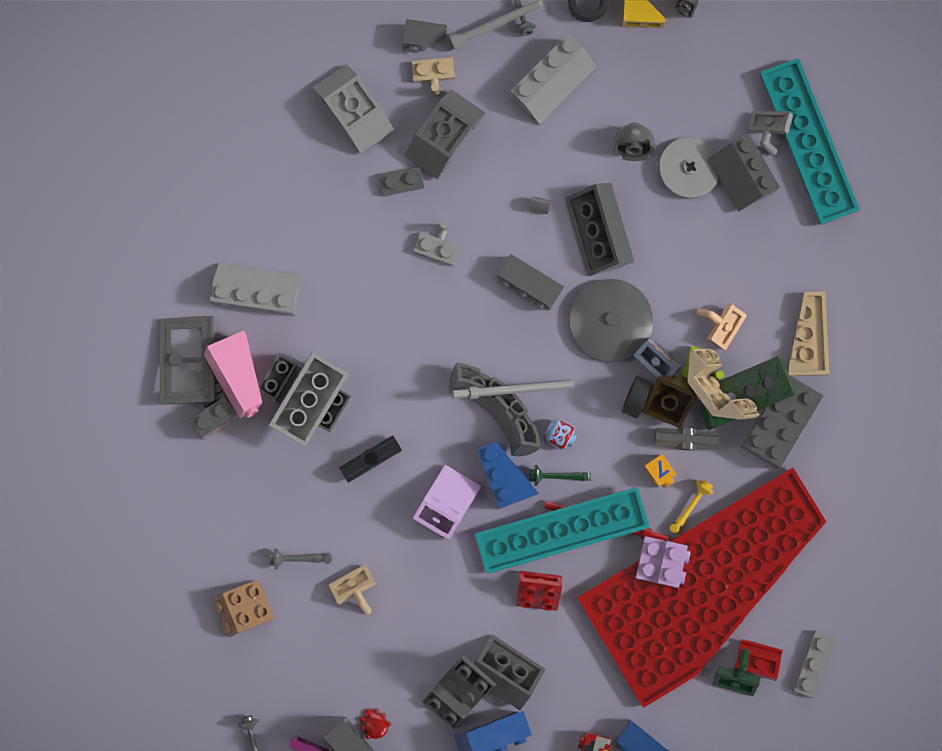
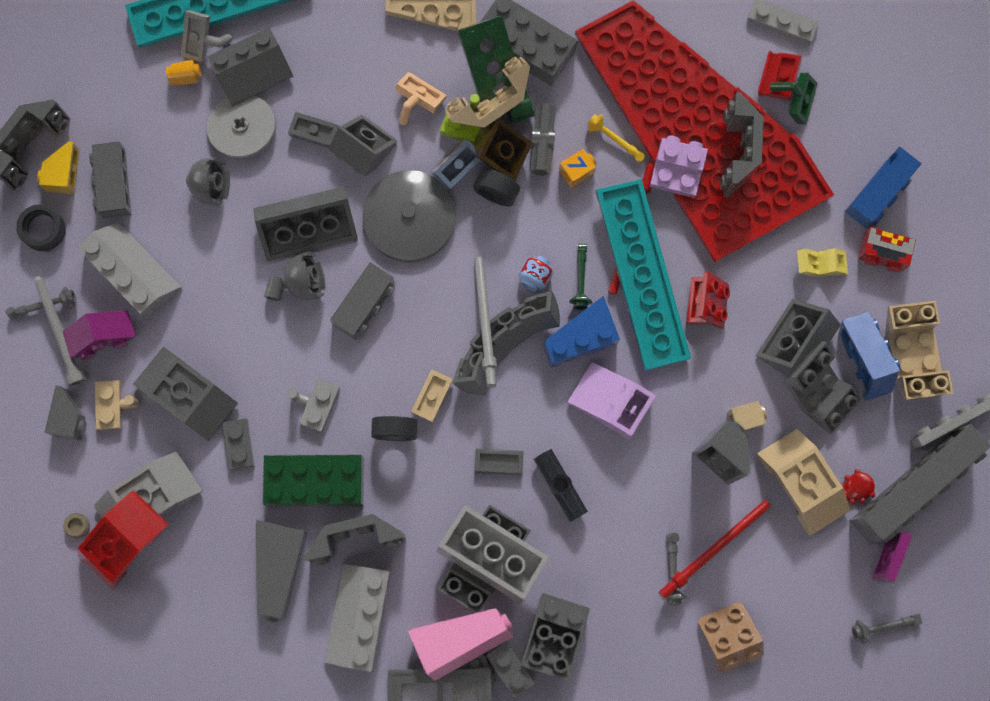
camera: 90 degrees left, 5 degrees down
(240, 454) = (555, 636): none -> dark grey slope
(291, 563) = (680, 579): none -> red bar
(298, 219) = (276, 567): none -> dark grey slope
(314, 257) = (322, 547): none -> dark grey slope
(317, 89) = (120, 538): none -> red slope
(330, 51) = (76, 525): none -> dark tan tile
(352, 586) = (705, 509): tan plate -> none
(370, 246) = (313, 480): none -> dark green brick
(378, 674) = (806, 480): none -> tan slope
(391, 406) = (499, 461): none -> dark grey tile
(399, 597) = (726, 452): none -> dark grey slope
(415, 312) = (394, 428): none -> black tyre
(434, 625) = (748, 415): none -> tan brick
(447, 345) = (431, 396): none -> tan plate
(494, 57) = (97, 332): none -> magenta brick
(549, 230) = (304, 277): none -> dark grey cylinder
(579, 696) = (822, 263): none -> light yellow slope
(633, 57) = (110, 180): none -> dark grey brick
(675, 276) = (362, 144): none -> dark grey slope
(687, 232) = (312, 129): none -> dark grey plate
(708, 619) = (743, 118): none -> dark grey slope
(736, 114) = (183, 73): none -> light orange brick

